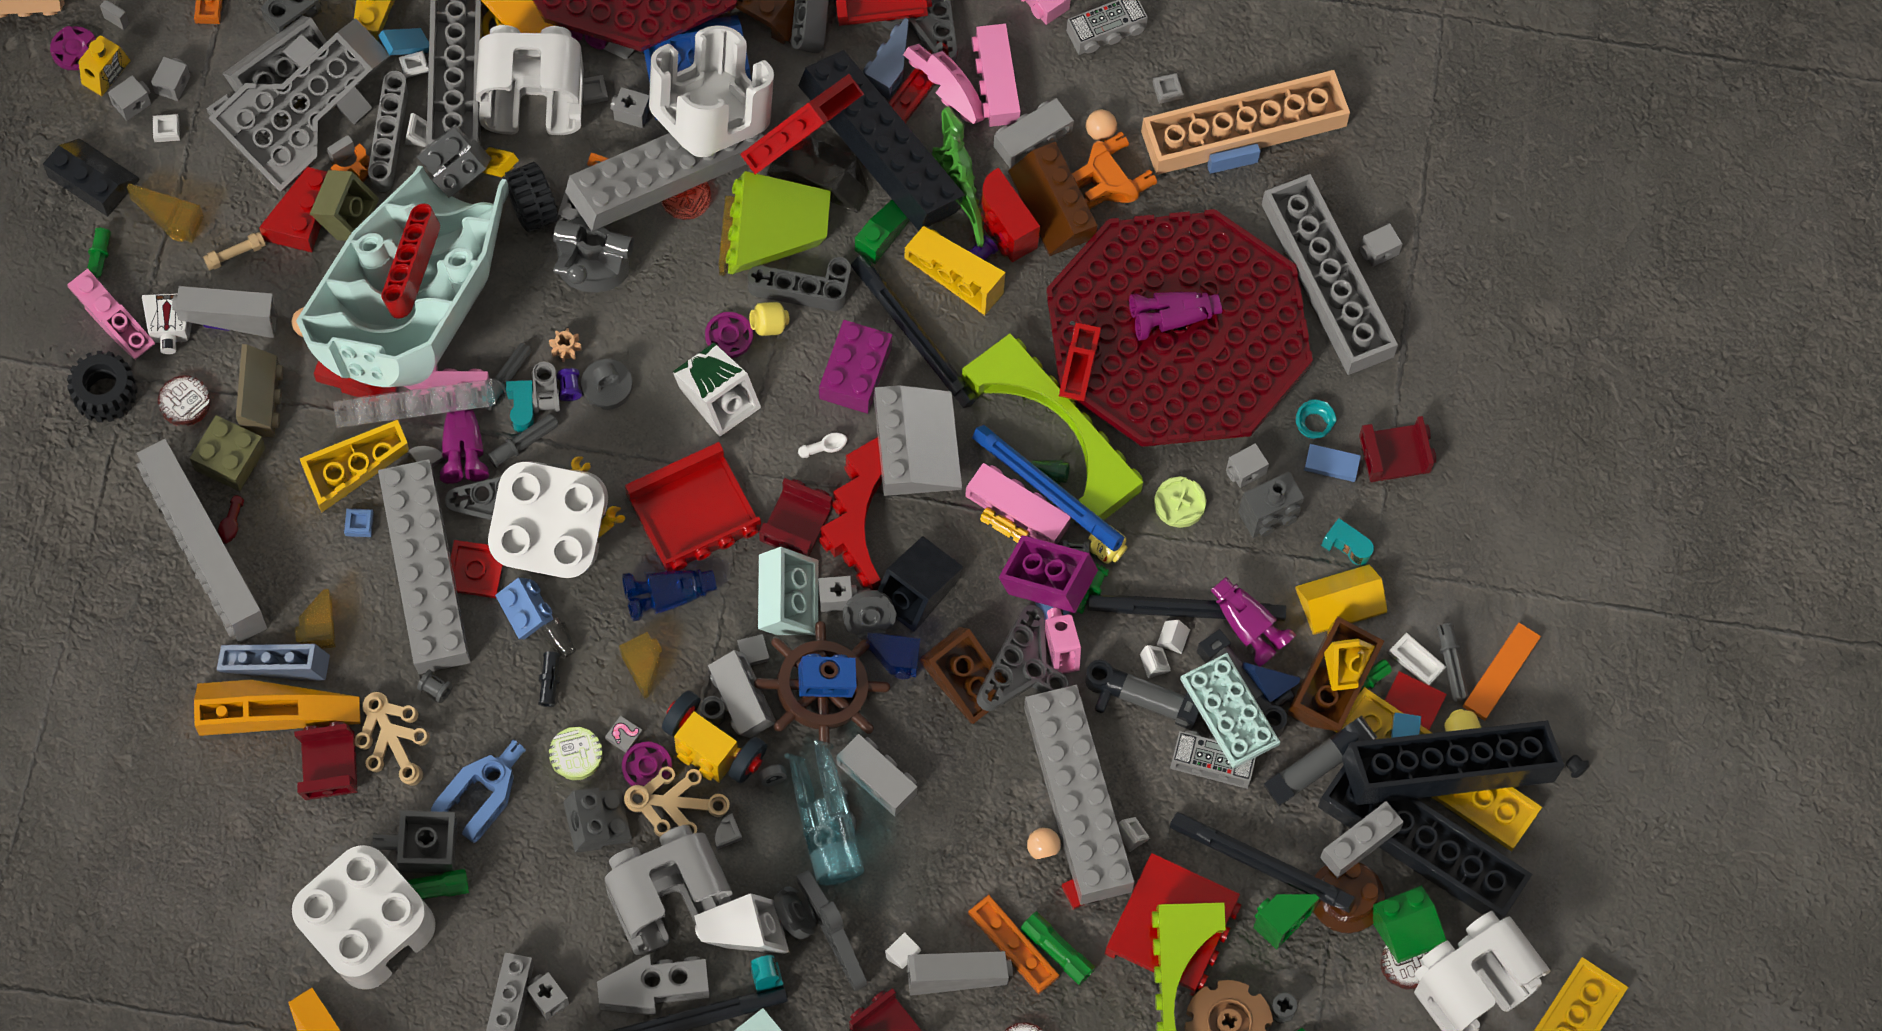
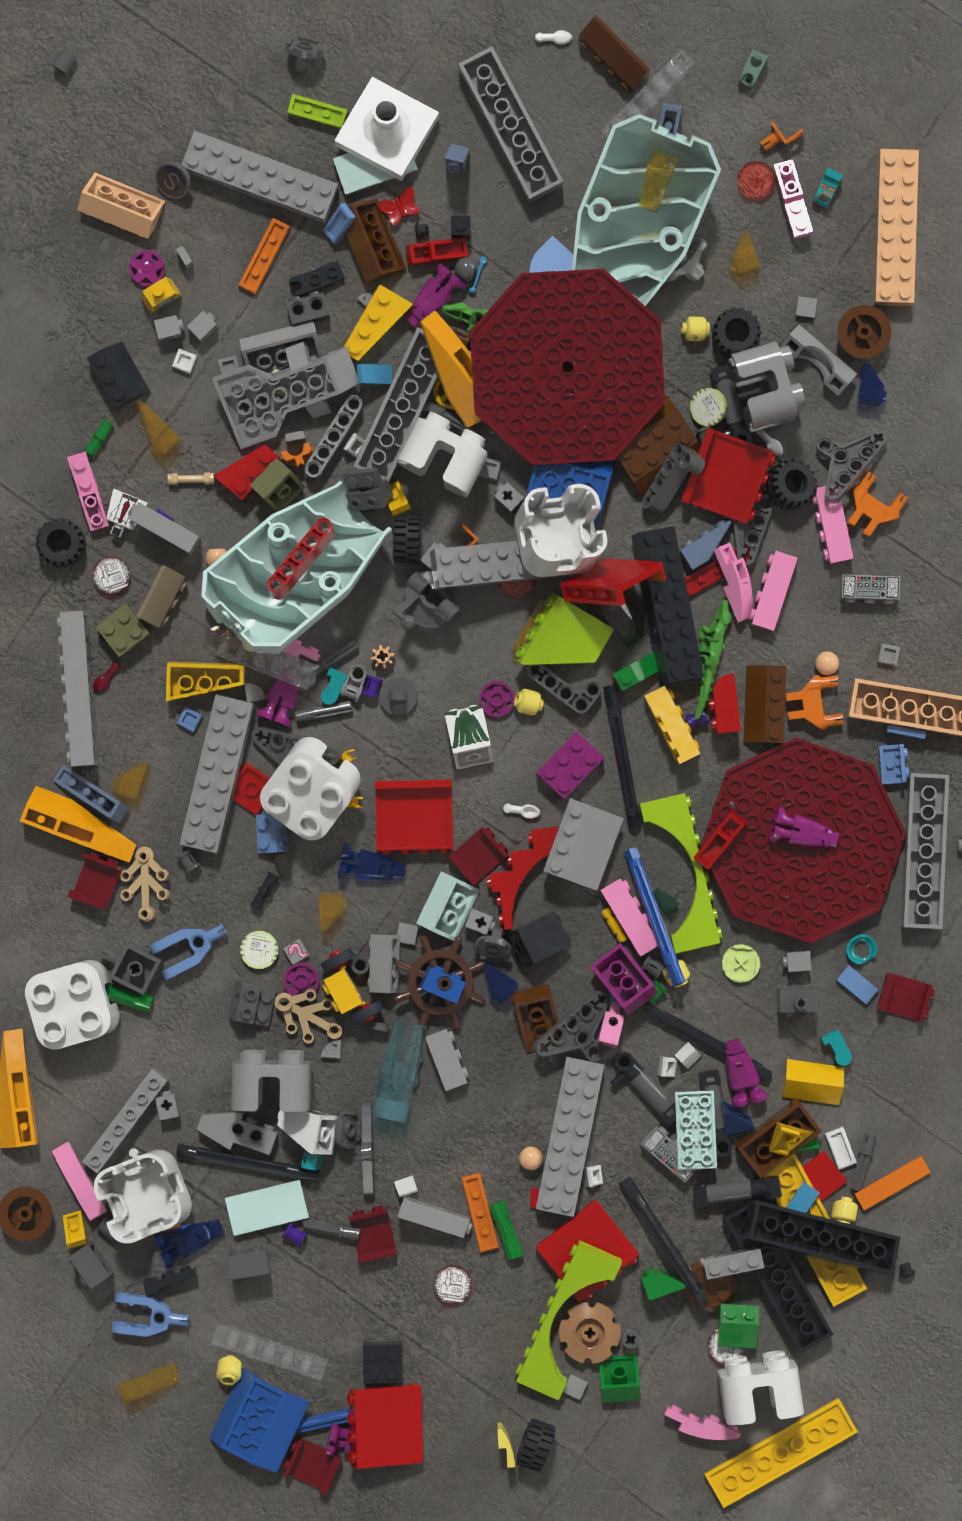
camera: 30 degrees right, 20 degrees up
(413, 64) = (373, 394): white slope -> none
(1033, 131) = (776, 646): light grey brick -> none
(1239, 198) = (893, 764): none -> medium blue bracket

